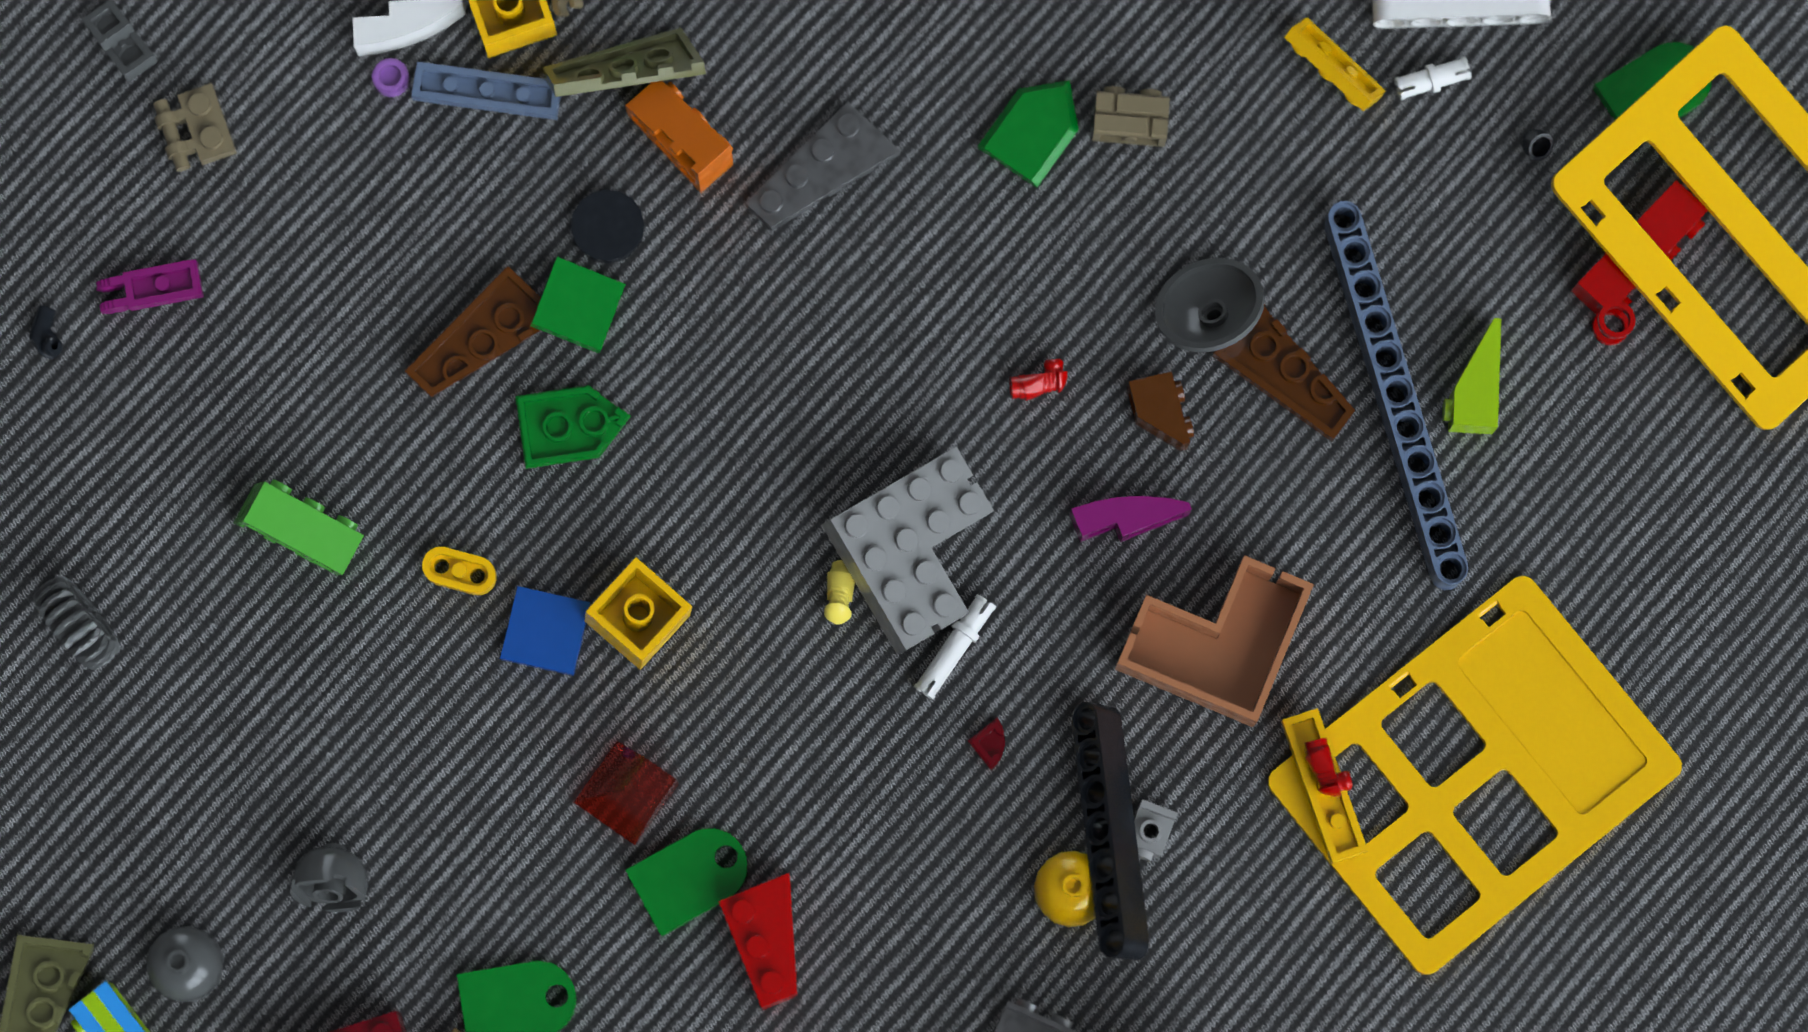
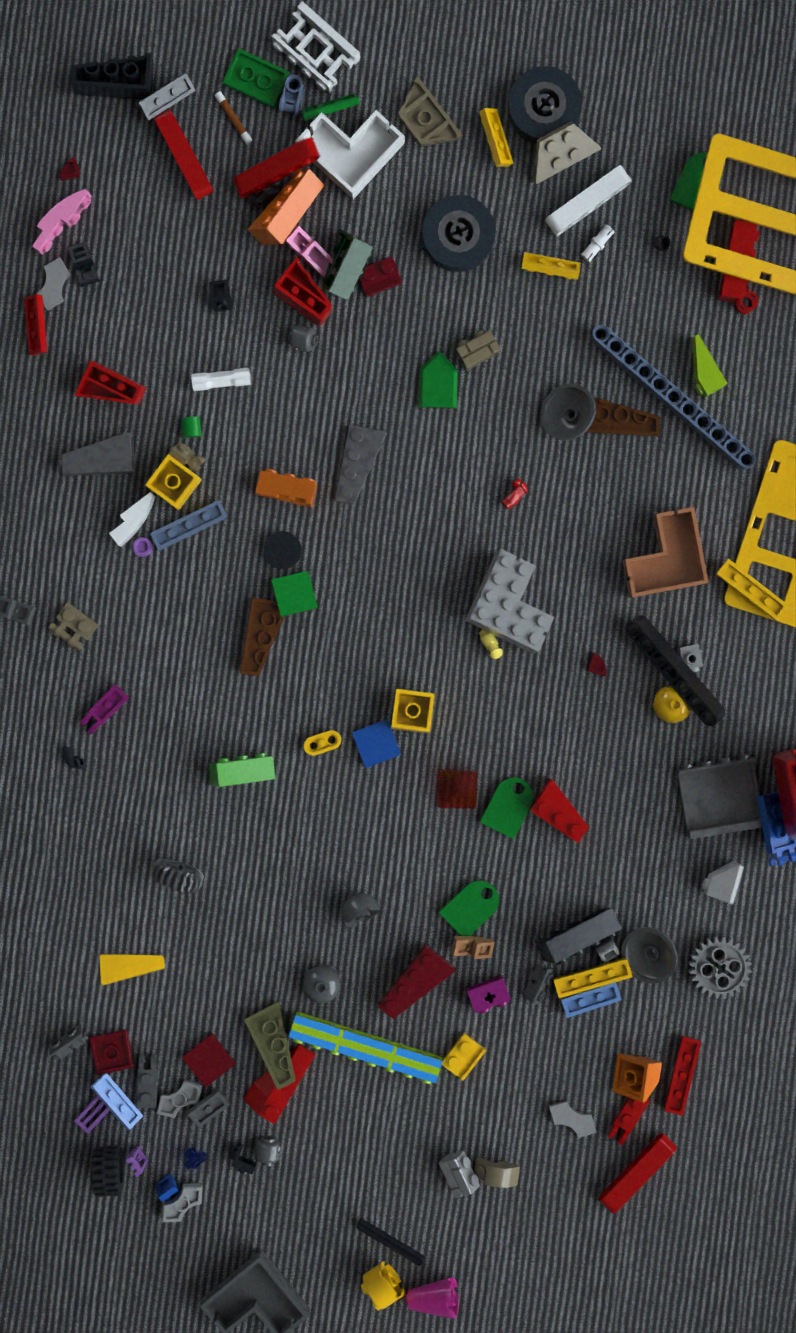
camera: 30 degrees left, 10 degrees up
(567, 425) = (325, 649): green tile -> none
(633, 63) = (245, 471): olive wing -> none
(964, 633) = (555, 634): white pin -> none
(1126, 515) = (591, 529): magenta slope -> none
(1158, 409) = (574, 472): reddish brown slope -> none
(1322, 765) = (747, 582): red arm -> none

